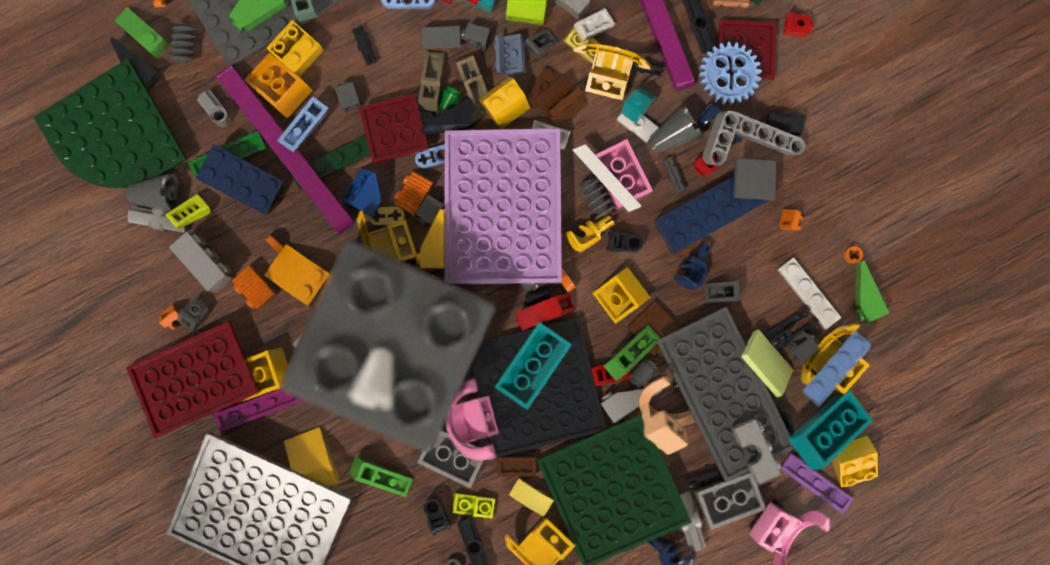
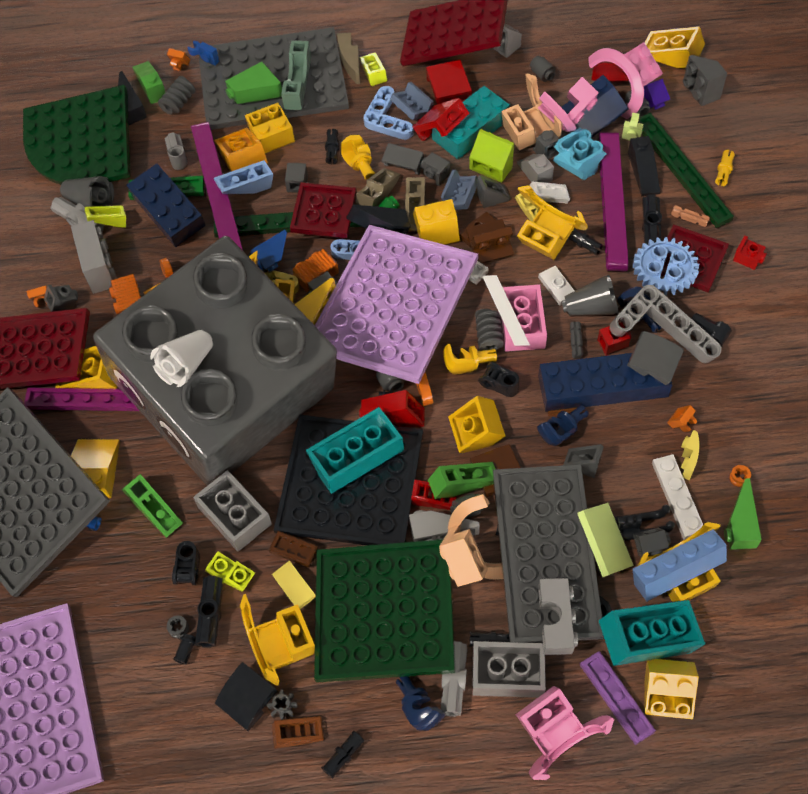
camera: 30 degrees right, 25 degrees down
(397, 50) = (357, 155): none -> yellow piece
(471, 422) = (265, 479): bright pink piece -> none
(638, 104) = (563, 264): teal slope -> none
(806, 246) = (690, 453): none -> light yellow slope

